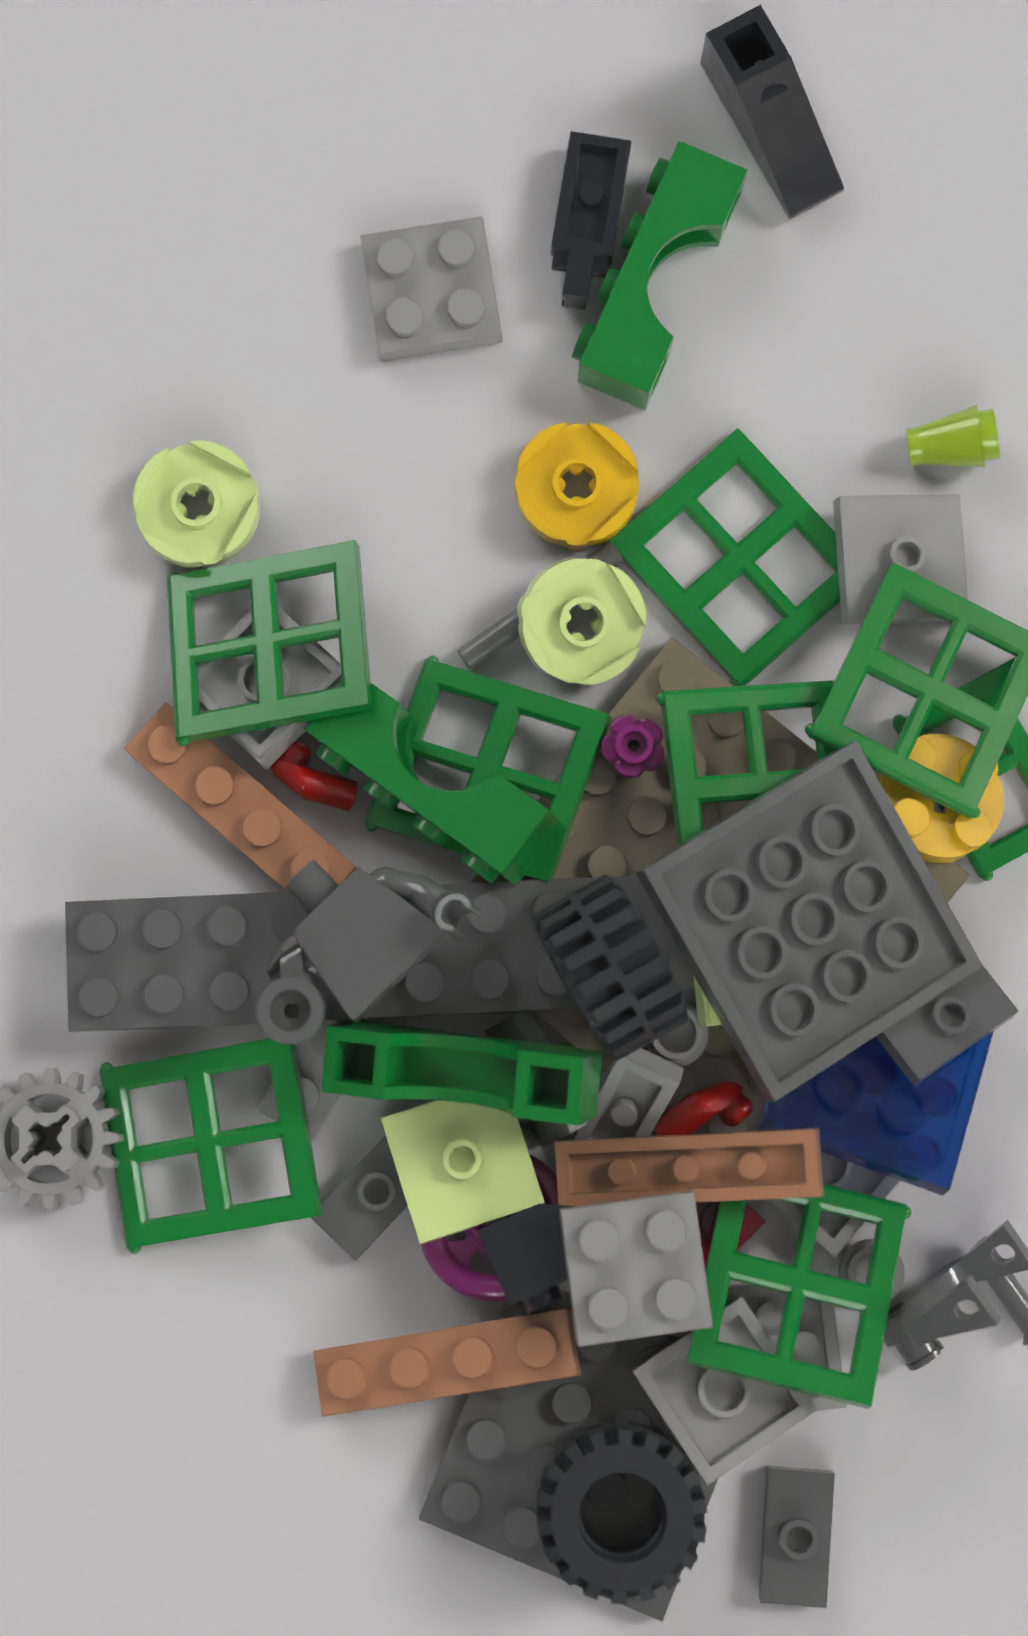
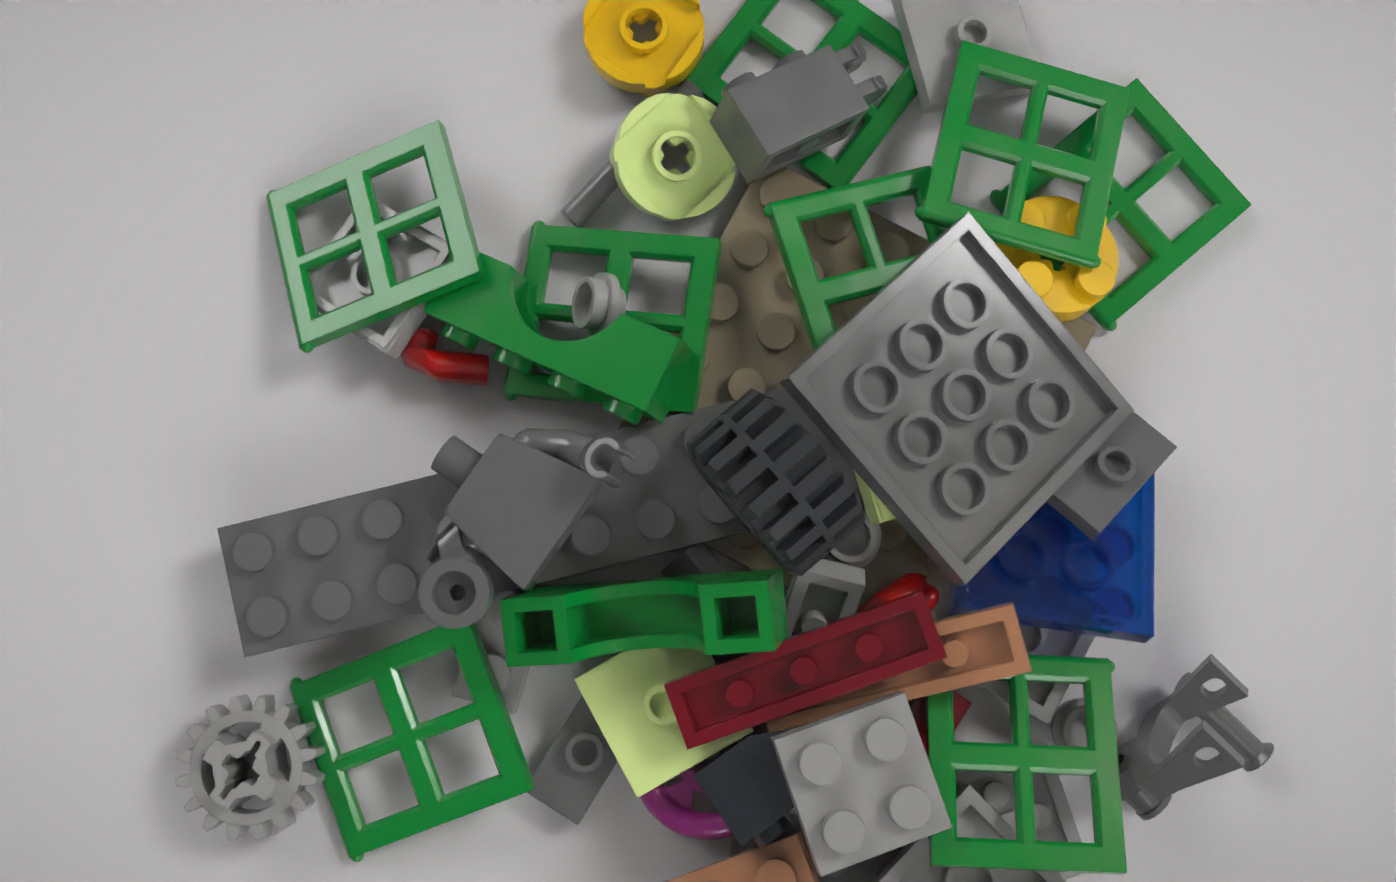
camera: 15 degrees left, 0 degrees up
(186, 470) = (265, 89): yellowish green plate -> none
(234, 802) = (368, 396): nougat plate -> none
(476, 755) = (597, 302): none -> light grey plate
(605, 1151) = (805, 669): none -> dark red plate
(630, 763) = (746, 281): magenta plate -> none
(708, 599) = (793, 109): none -> dark grey hinge

